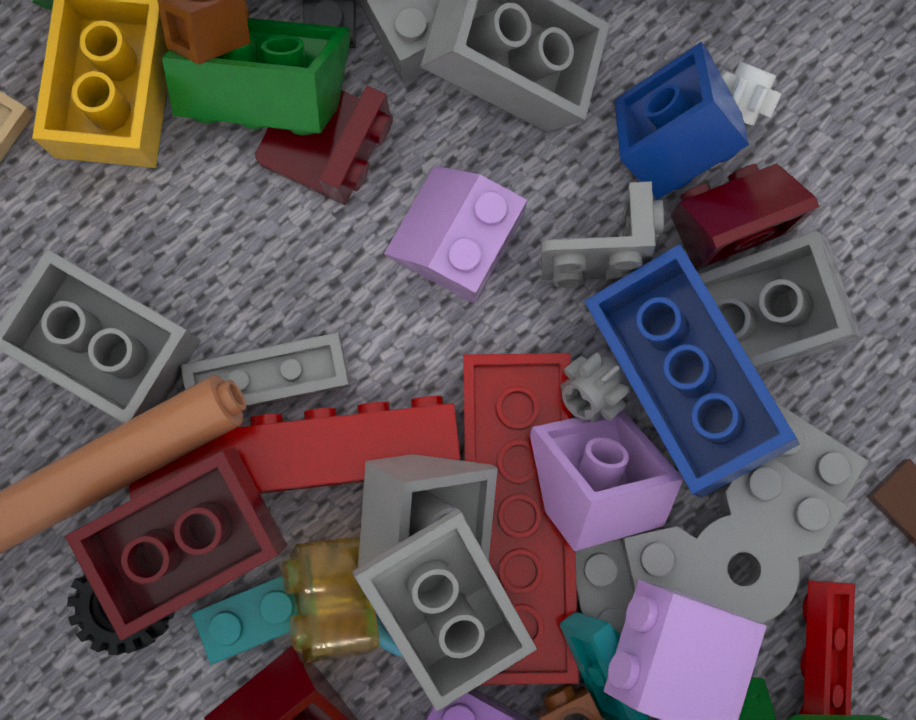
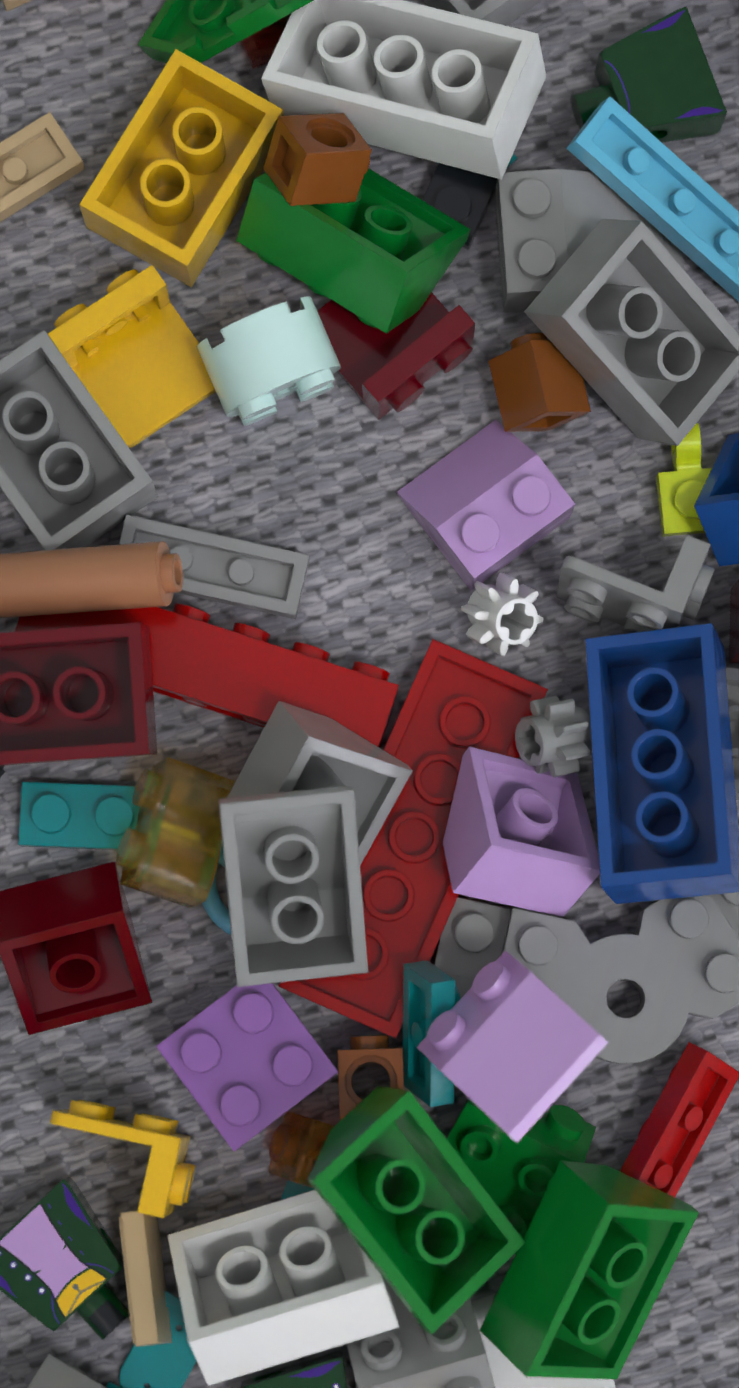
camera: 20 degrees right, 0 degrees up
(132, 238) = (134, 355): none -> yellow bracket
(237, 193) = (270, 359): none -> light aqua brick
(455, 123) = (537, 386): none -> dark orange brick
(508, 311) = (502, 614): none -> white gear
(601, 154) = (681, 487): none -> neon yellow plate

